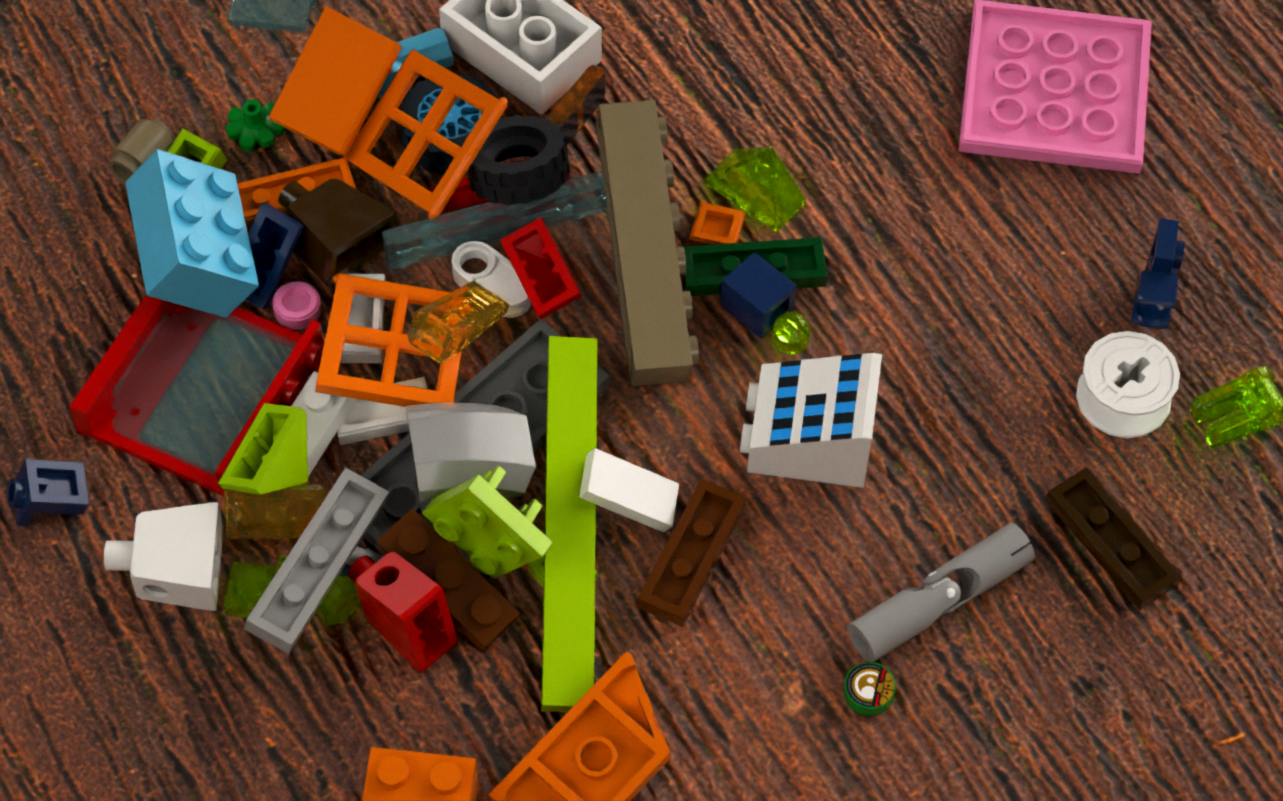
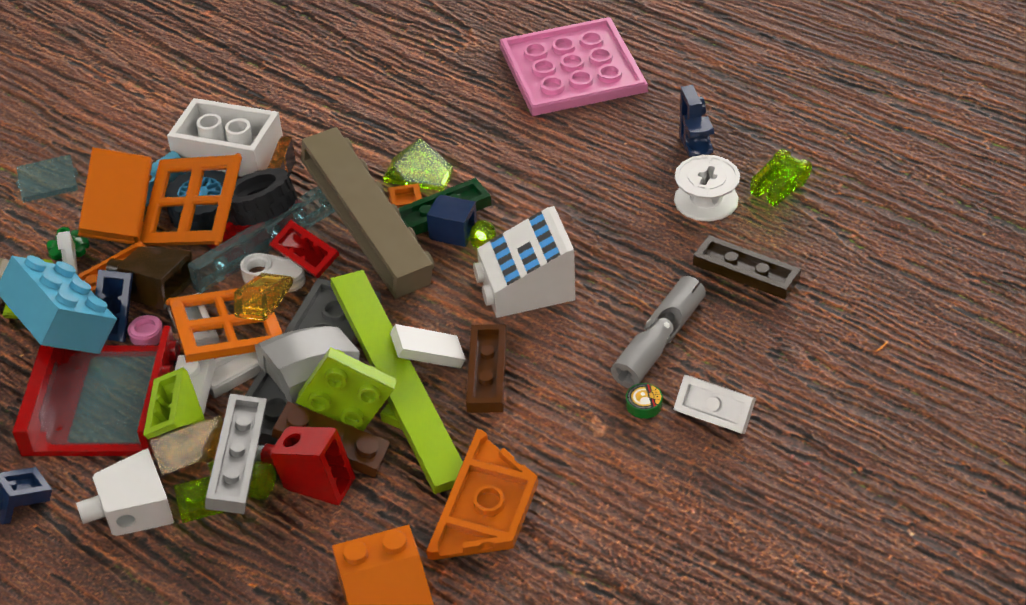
camera: 20 degrees left, 15 degrees down
(248, 135) = (67, 247): none -> white tile
(953, 738) = (714, 404): none -> white plate

